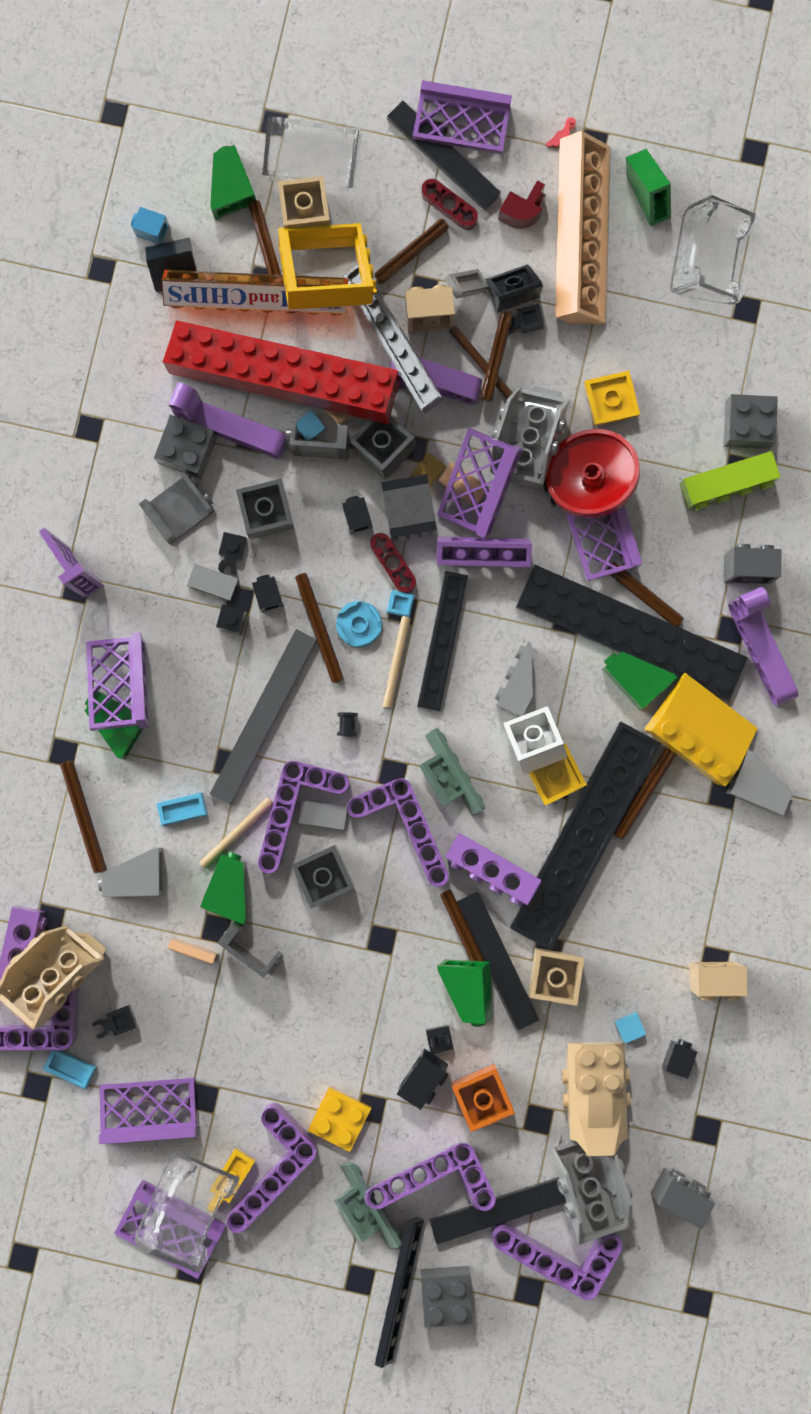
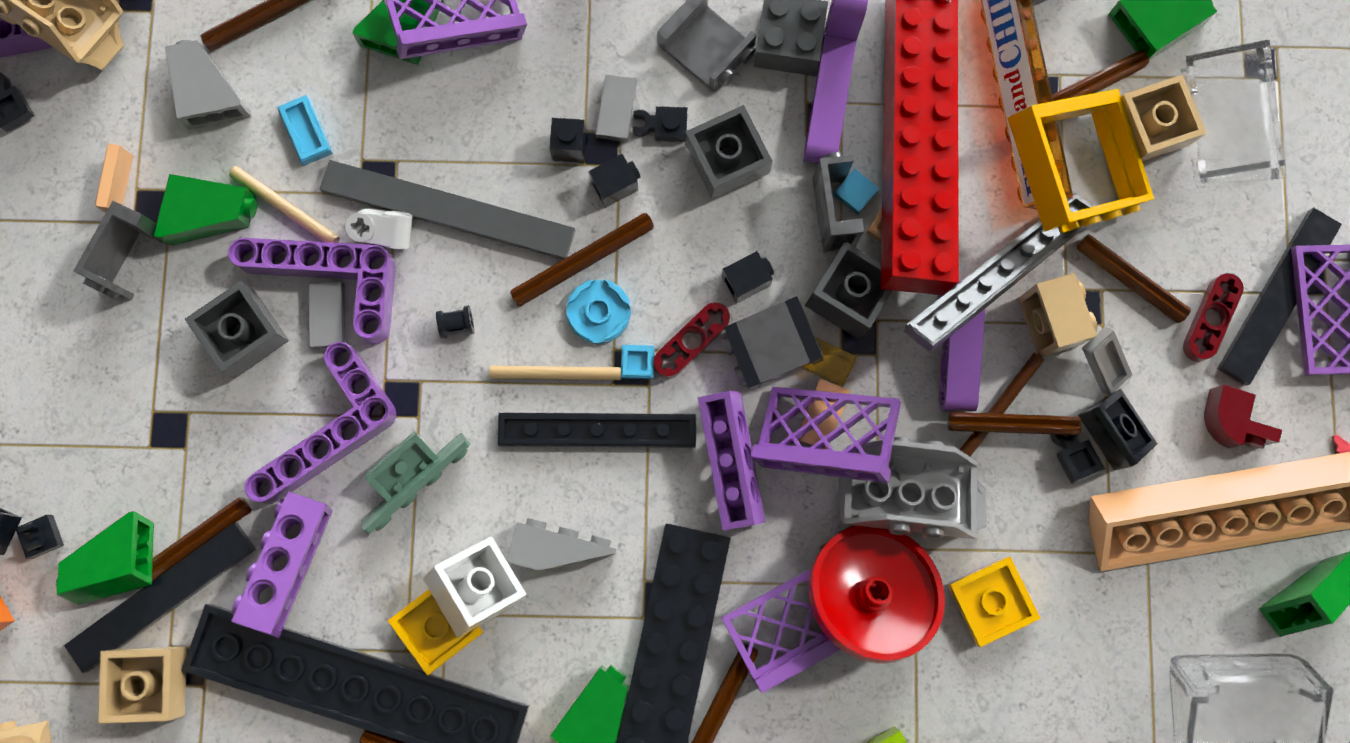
camera: 75 degrees right, 5 degrees down
(269, 761) = (386, 228): none -> white piece

